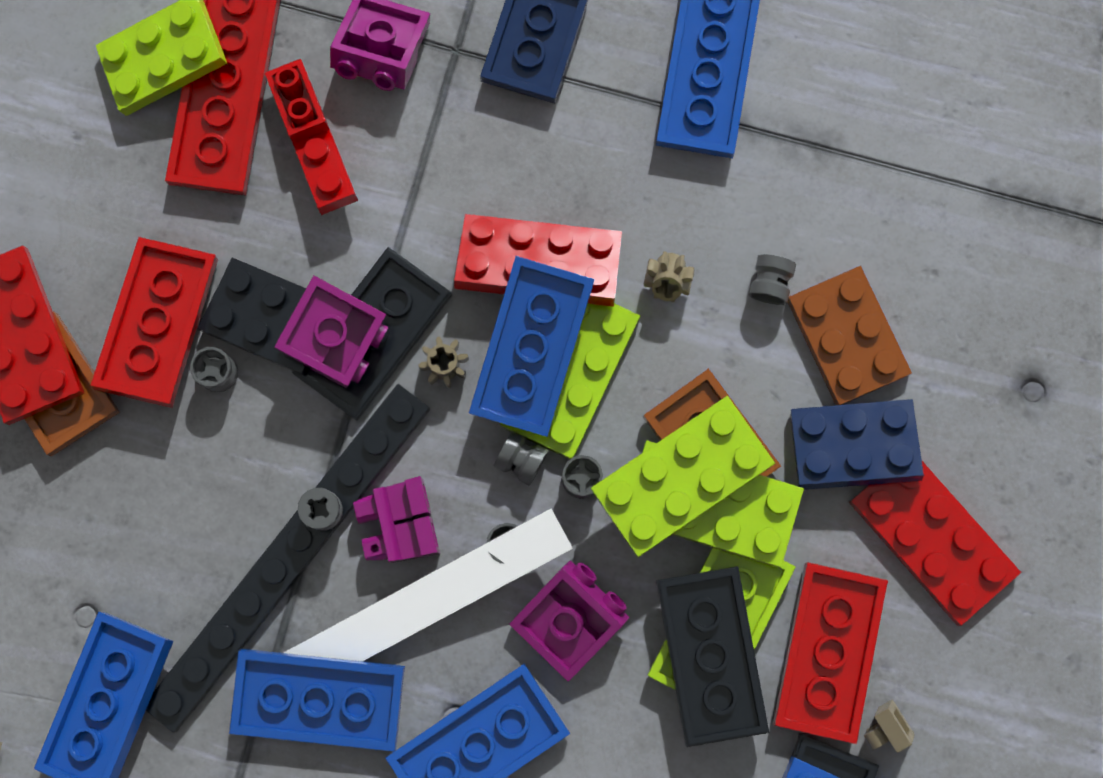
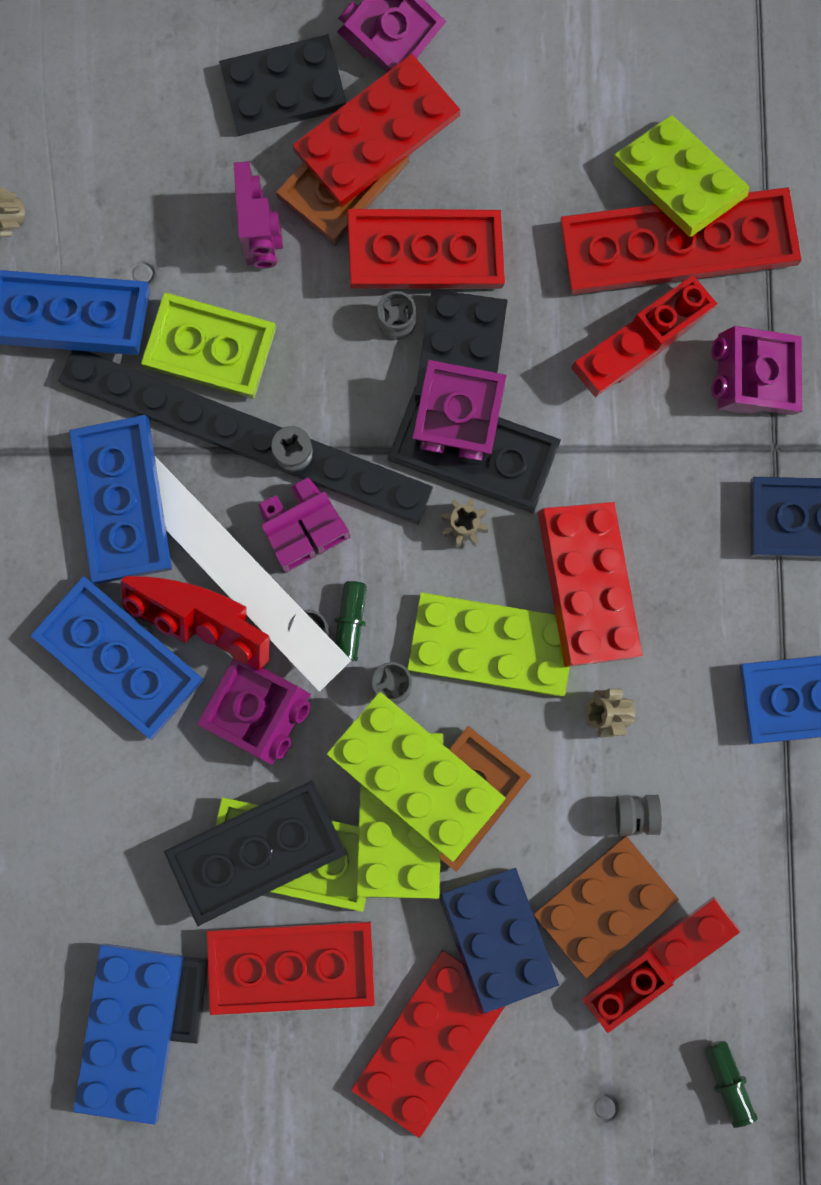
camera: 75 degrees right, 0 degrees up
(79, 480) = (257, 225): none -> magenta plate
(184, 567) = (209, 345): none -> lime plate
(451, 659) = (189, 610): none -> red slope
(505, 500) = (351, 618): none -> dark green axle
(521, 458) = (393, 625): dark grey wheel -> none
(531, 346) = (500, 598): blue plate -> none
(890, 727) = (235, 1045): dark tan tile -> none
(914, 300) = (660, 964): none -> red slope
(1041, 269) = (730, 1084): none -> dark green axle

